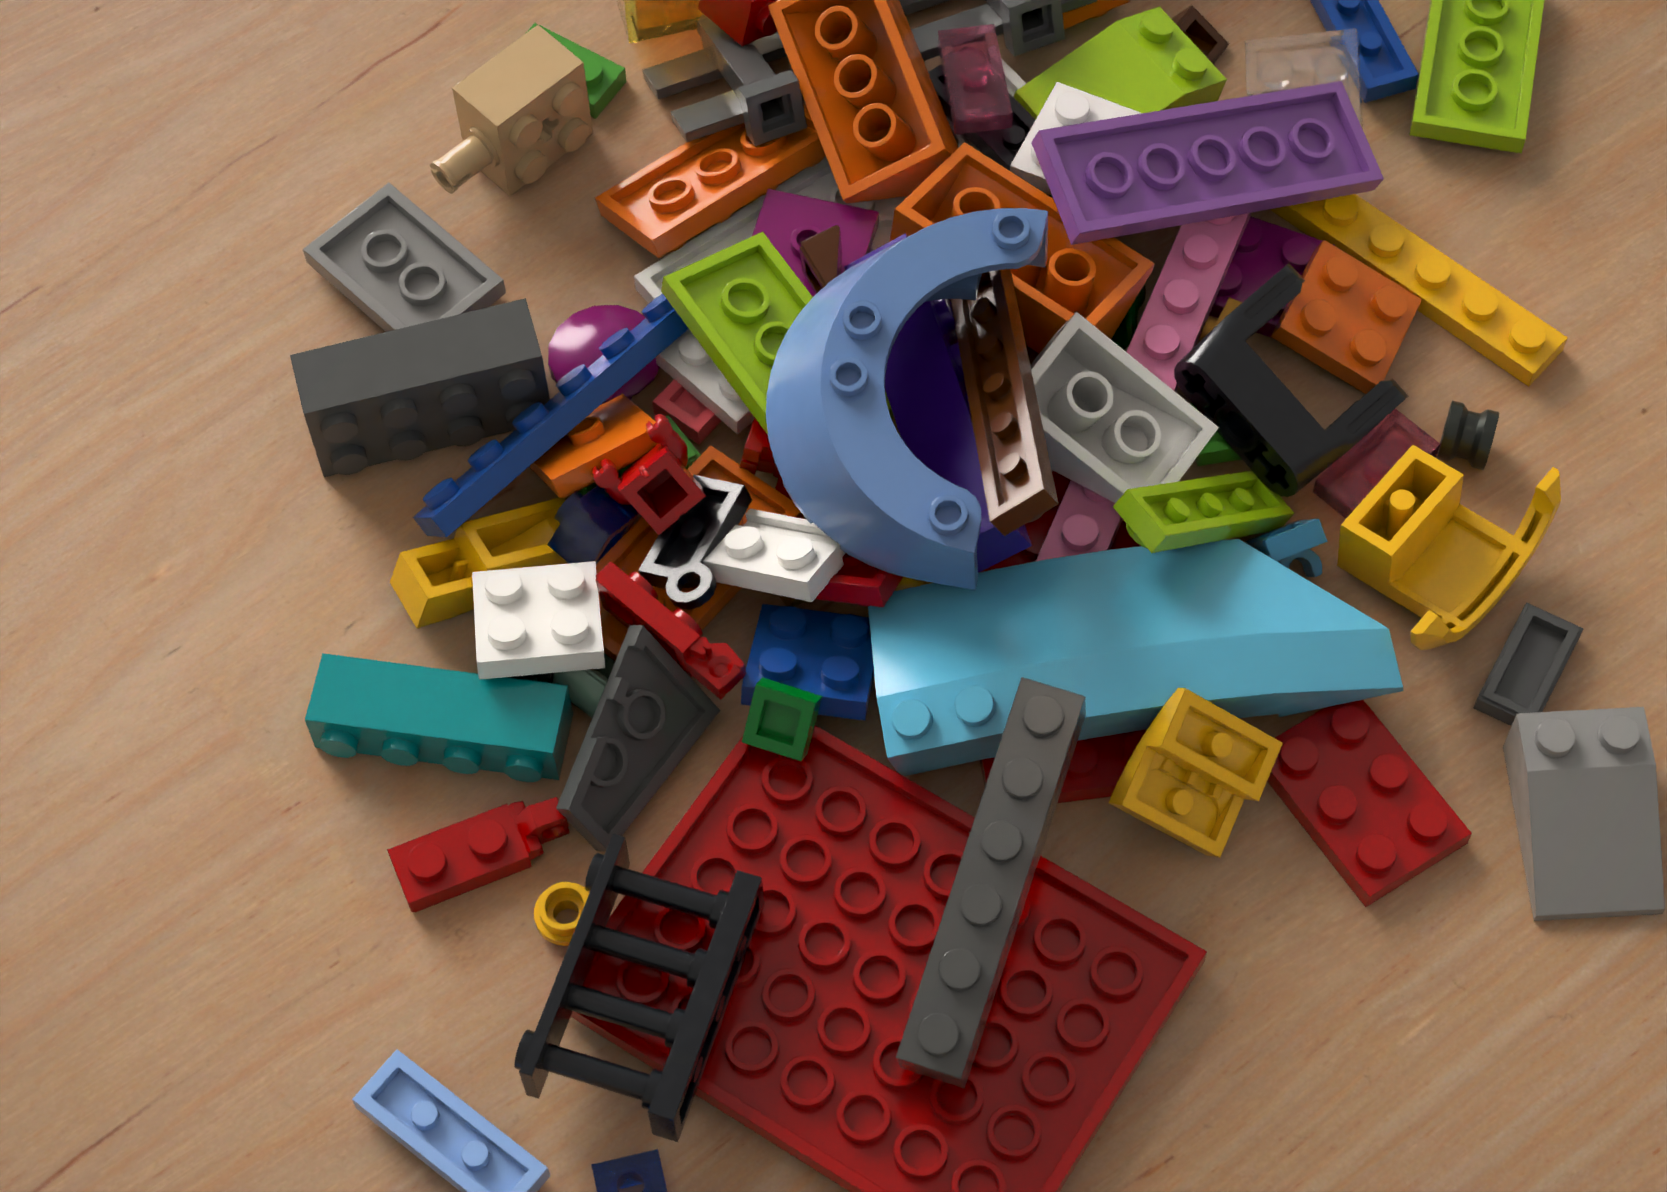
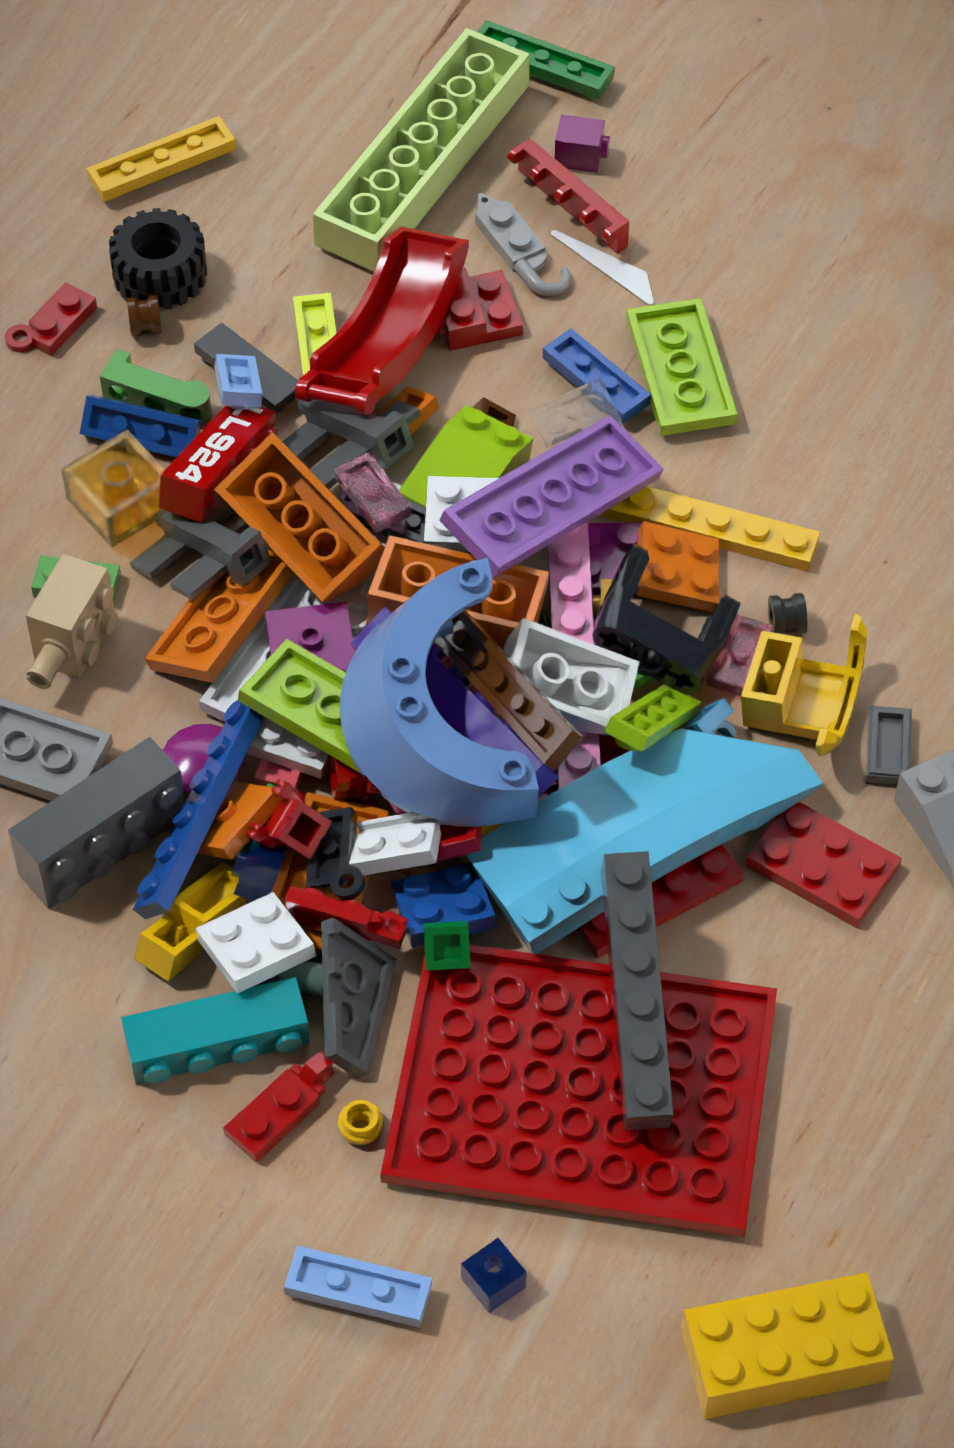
camera: 25 degrees left, 5 degrees down
(687, 1032) = (478, 1117): black fence -> none
(822, 257) = (333, 646): reddish brown slope -> none
(1195, 772) = (722, 880): yellow slope -> none

